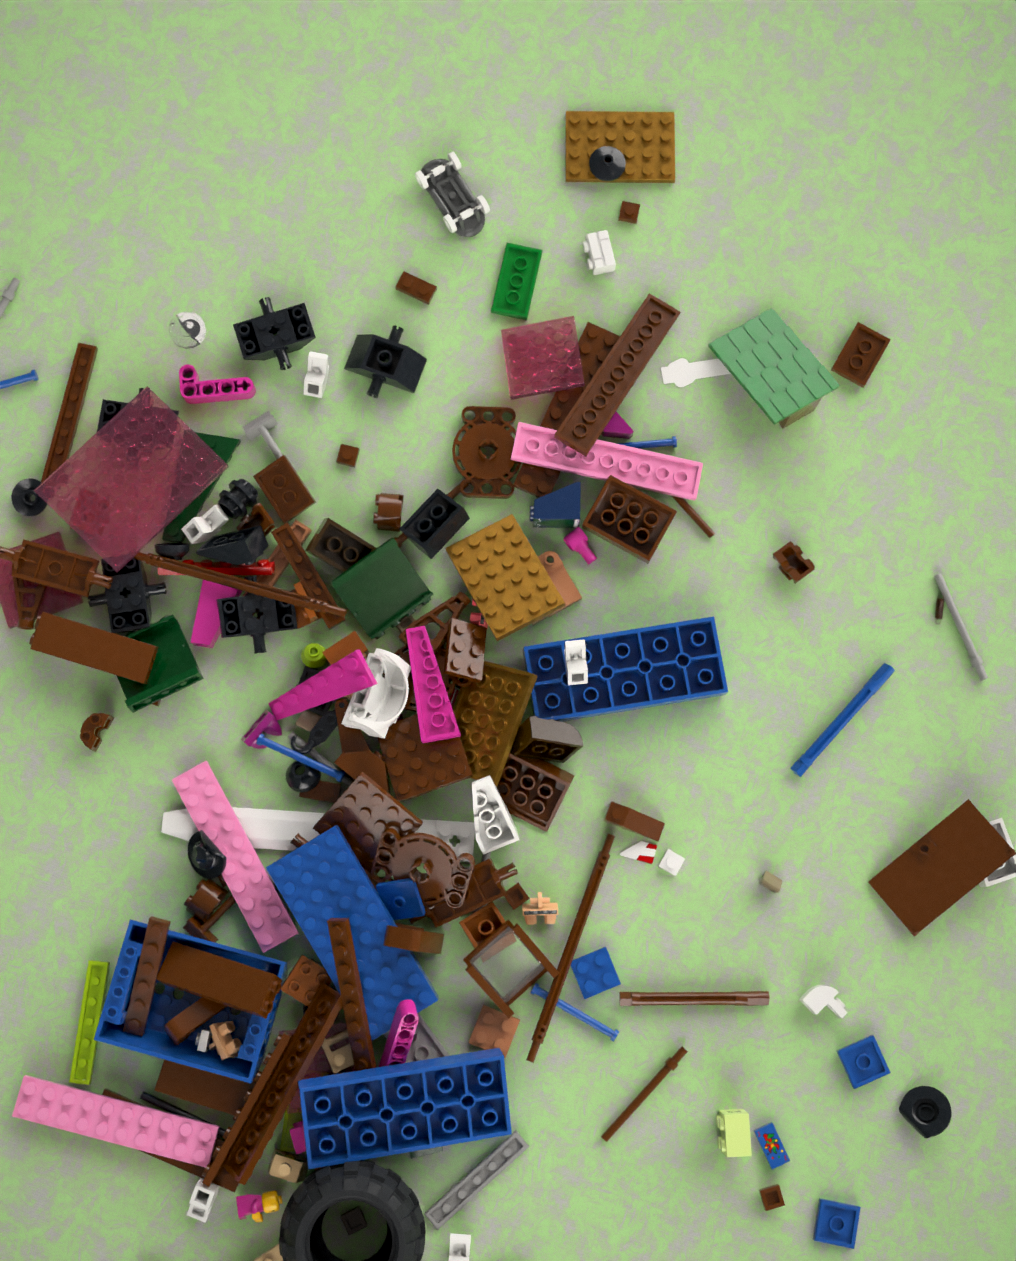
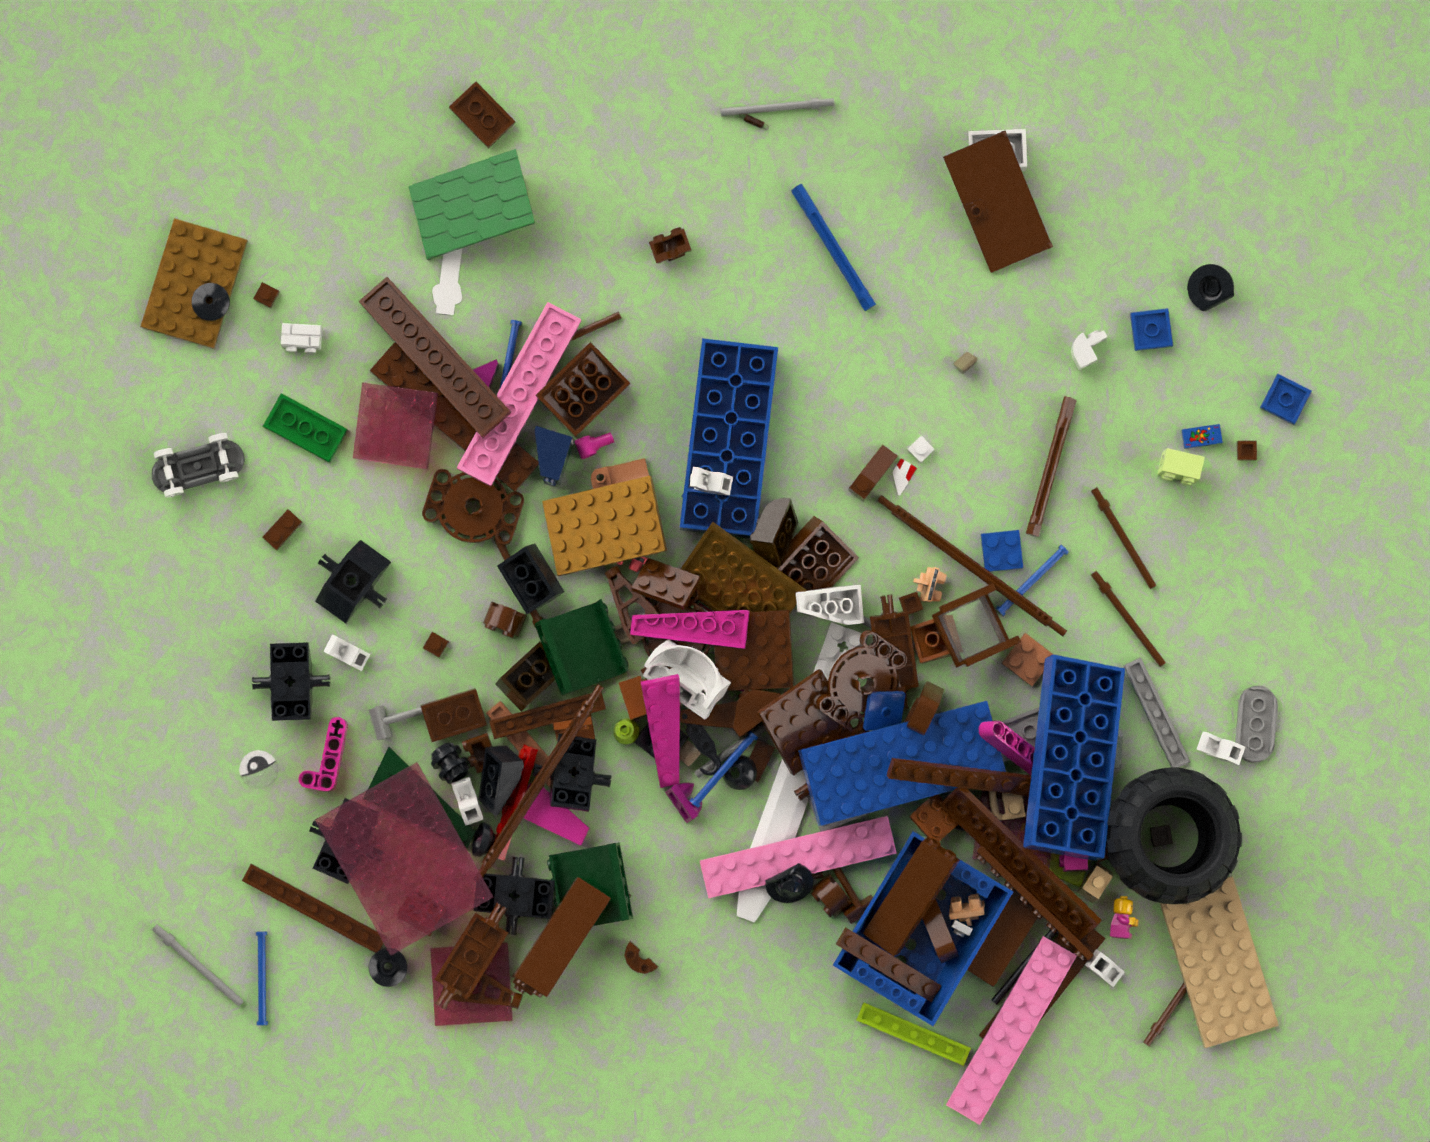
camera: 70 degrees left, 5 degrees up
(588, 1089) = (1105, 588): none -> reddish brown bar

